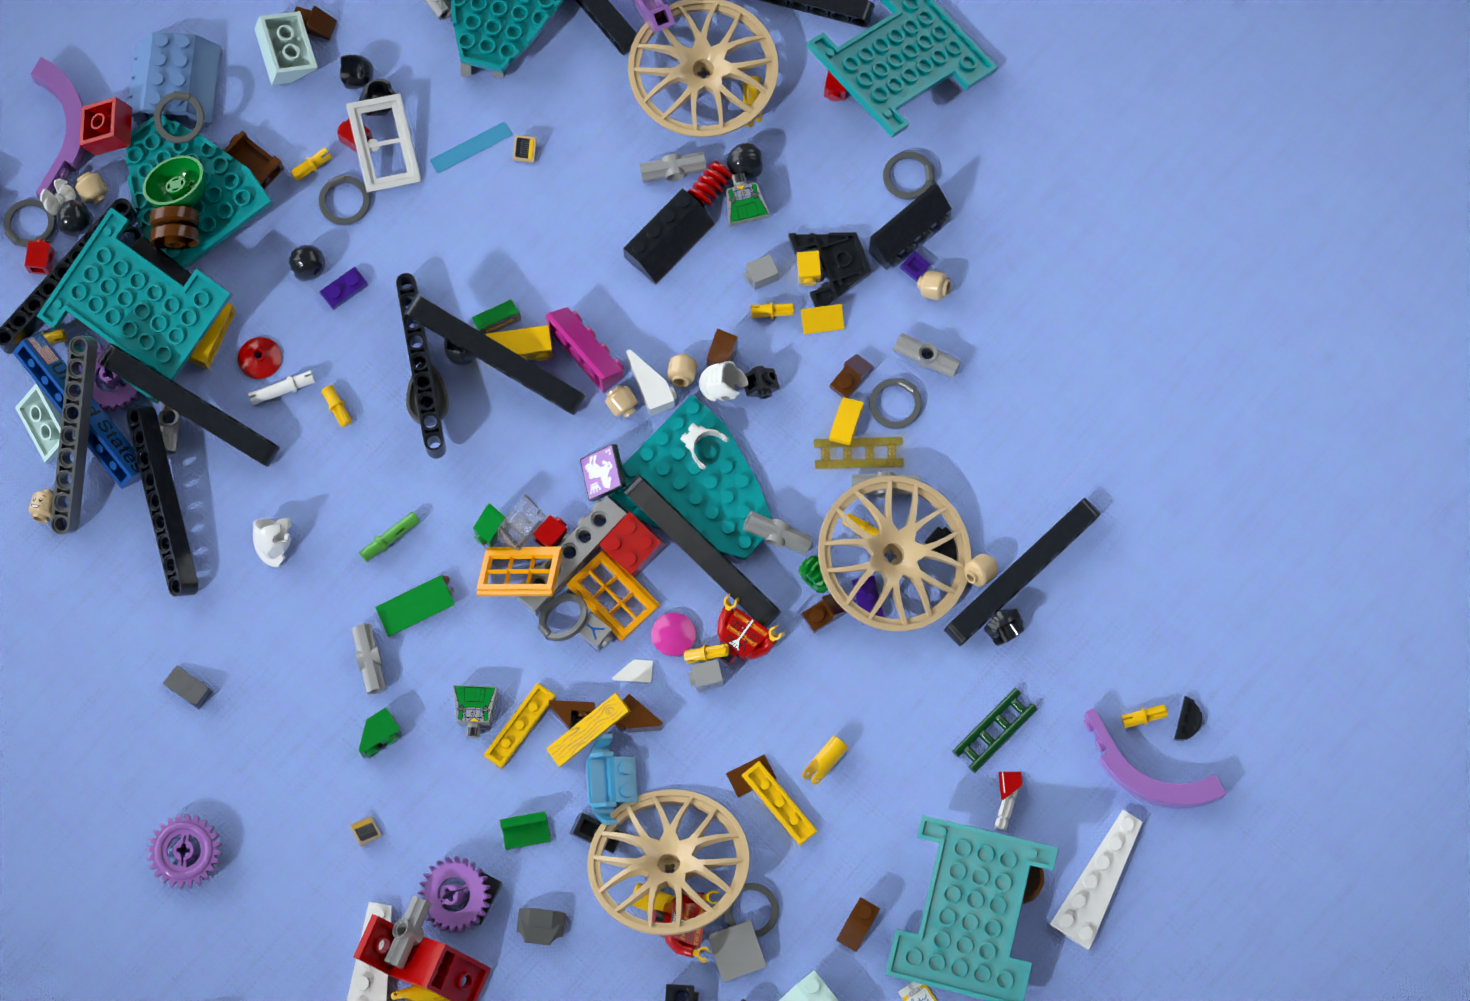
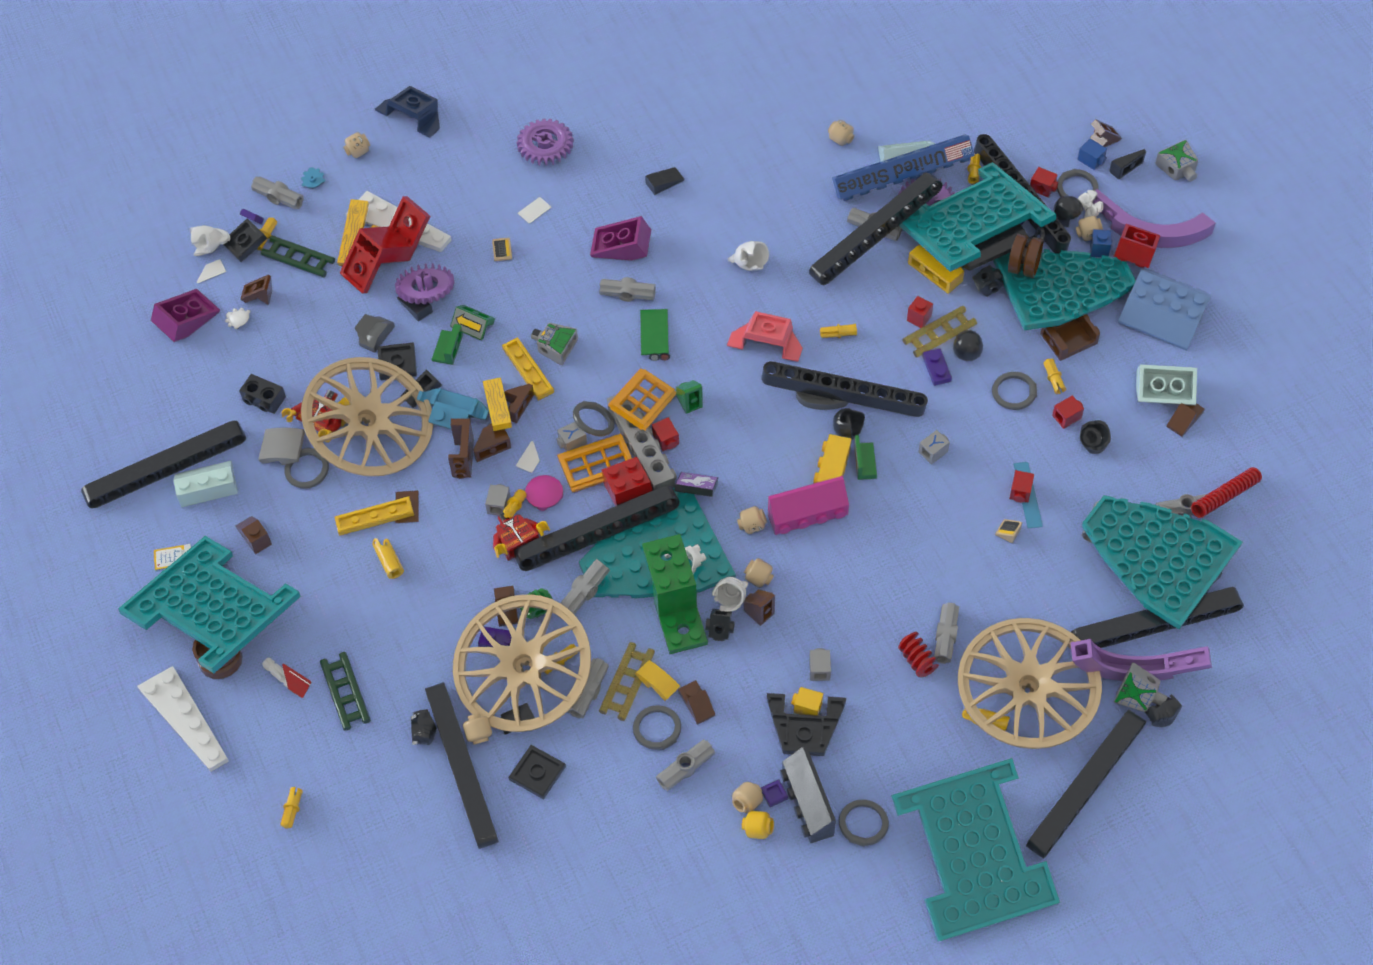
camera: 115 degrees right, 15 degrees down
(66, 442) = (882, 149): dark grey beam -> none
(110, 169) = (1100, 243): none -> blue brick
(162, 501) = (809, 196): black beam -> none
(175, 182) = (1061, 264): green piece -> none
(184, 96) = (1125, 301): dark grey piece -> none
(215, 261) = (988, 280): none -> black brick
(264, 366) = (896, 300): red dish -> none
(280, 326) = (919, 312): none -> red brick
(282, 387) = (869, 305): white pin -> none
(287, 824) = (534, 210): none -> white sticker
(291, 288) = (943, 321): none -> clear yellow bar
(301, 696) = (622, 240): none -> magenta slope
(355, 71) = (1125, 429): black hair -> none
(364, 148) = (1052, 410): white door -> none
(370, 480) = (770, 330): none -> coral piece
(377, 732) = (569, 279): green slope -> none
(387, 538) = (713, 324): bright green pin -> none
(408, 932) = (408, 238): light grey piece -> none
(453, 252) = (934, 447): none -> light grey brick
(469, 151) = (1021, 486): none -> red brick
(481, 817) = (472, 321): none -> panel
(495, 354) = (826, 434): black beam -> none
(520, 524) = (680, 410): clear slope -> none
(567, 879) = (400, 355): none -> black tile
(653, 387) = (758, 545): white slope -> none
(661, 734) = (463, 435): none -> reddish brown panel
(668, 236) = (882, 605): black slope -> none
(744, 202) = (889, 673): torso -> none
(745, 159) = (929, 687): black hair -> none
(751, 433) = (674, 594): none -> green bracket
(771, 310) = (782, 661): yellow axle -> none
(822, 319) = (757, 697): yellow sticker -> none
(958, 265) = (758, 824): none -> yellow head
(994, 497) = (537, 771): none -> black tile
(1144, 787) = (235, 780): medium lavender arch -> none
(1189, 720) = (269, 844): black tile -> none

